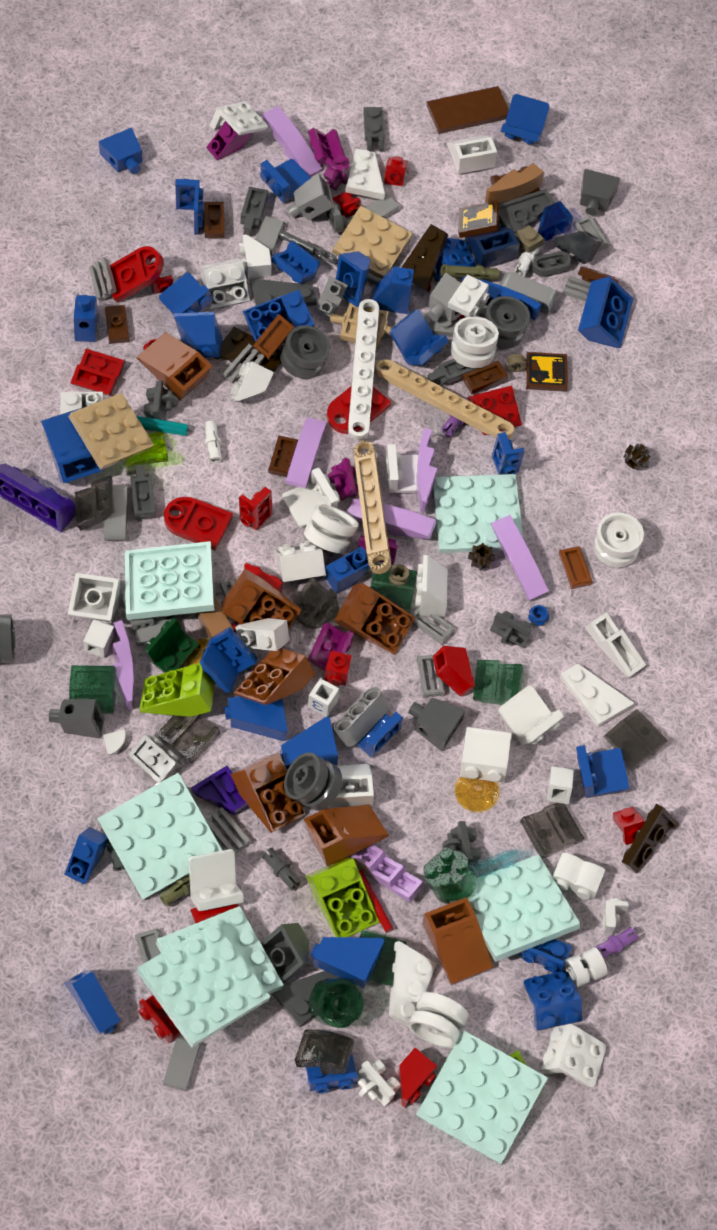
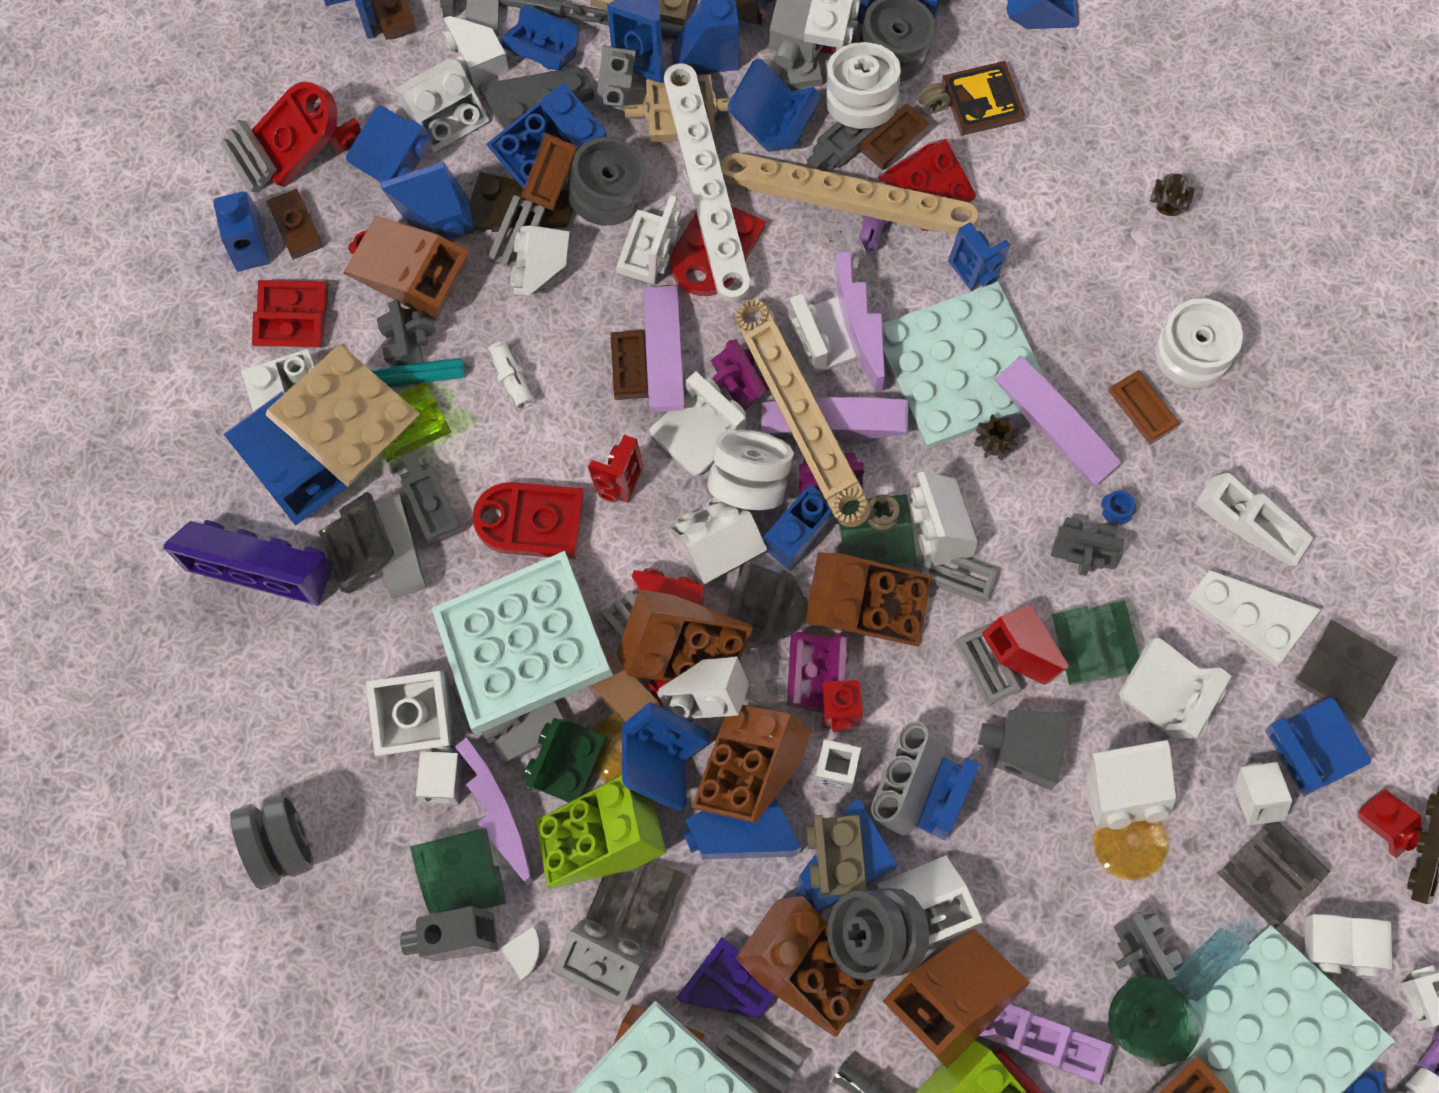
camera: 10 degrees left, 10 degrees up
(306, 736) = (838, 855): none -> dark tan bracket
(318, 393) = (648, 243): none -> white bracket

